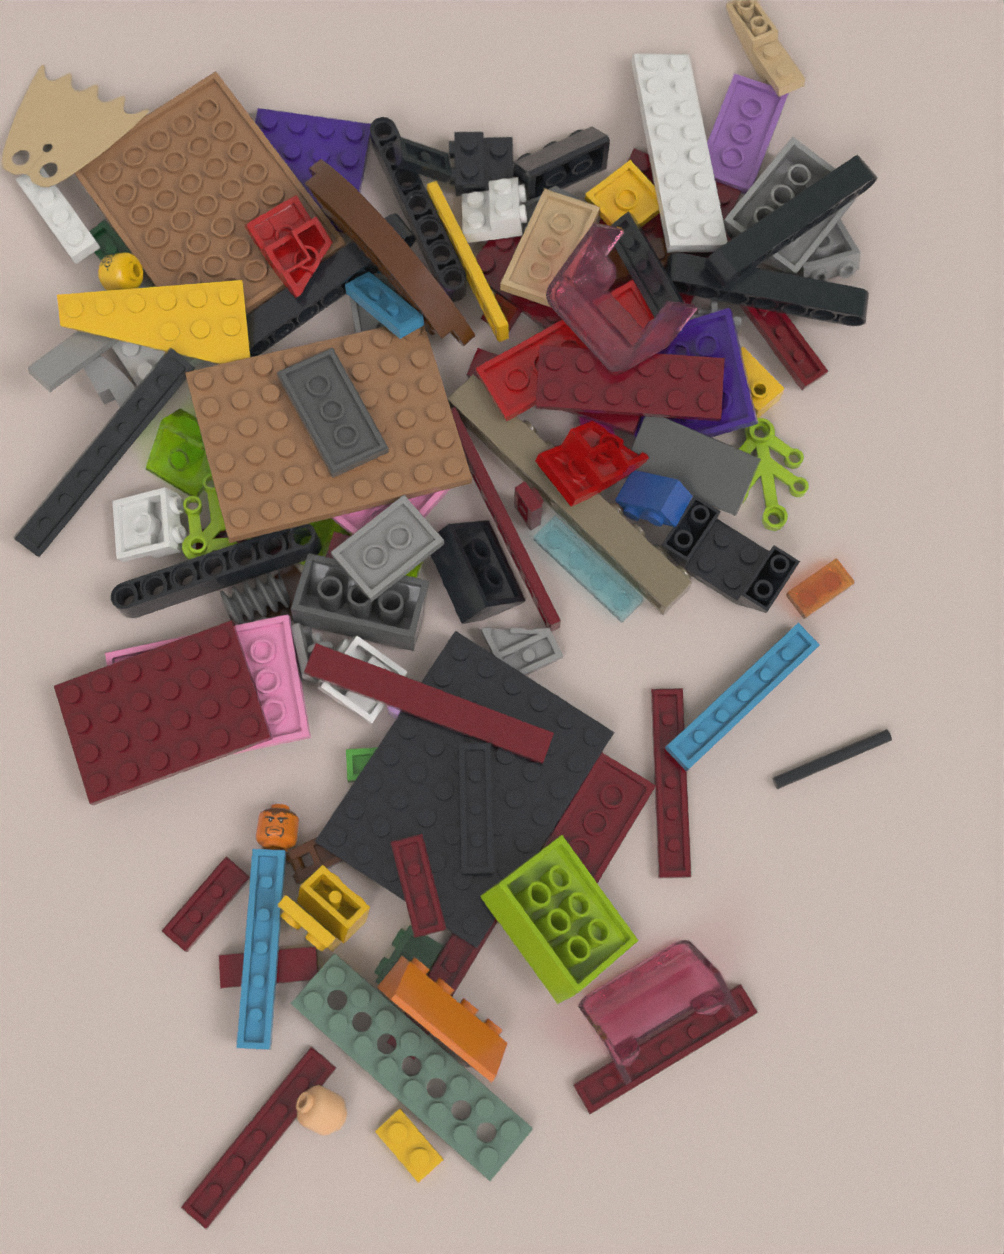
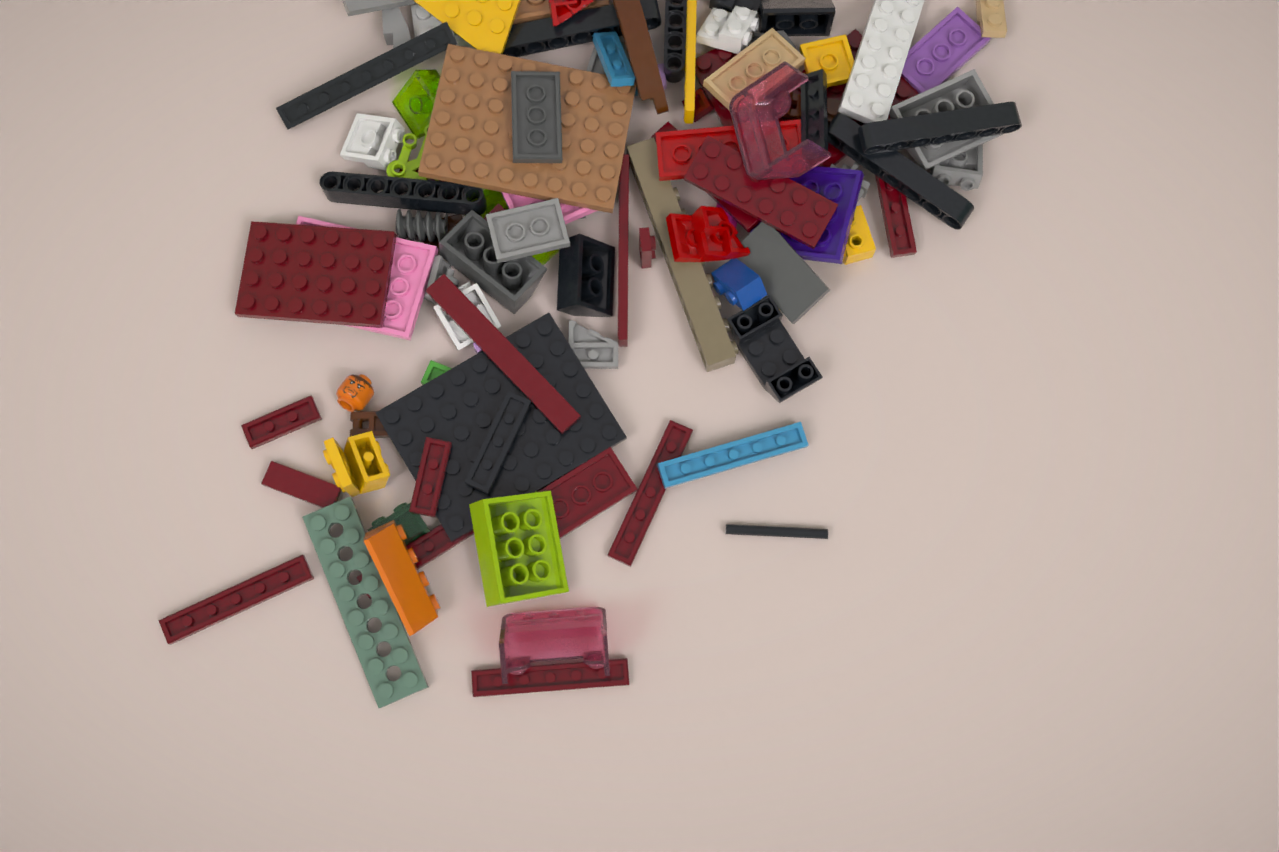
camera: 25 degrees right, 0 degrees up
(261, 949) = (300, 470): dark azure plate -> none
(321, 1110) = (286, 600): light nougat head -> none
(409, 1145) = (336, 656): yellow plate -> none
(588, 569) = (668, 314): clear light blue plate -> none
(769, 468) = (836, 301): lime plant -> none
(820, 588) = (830, 405): clear orange plate -> none

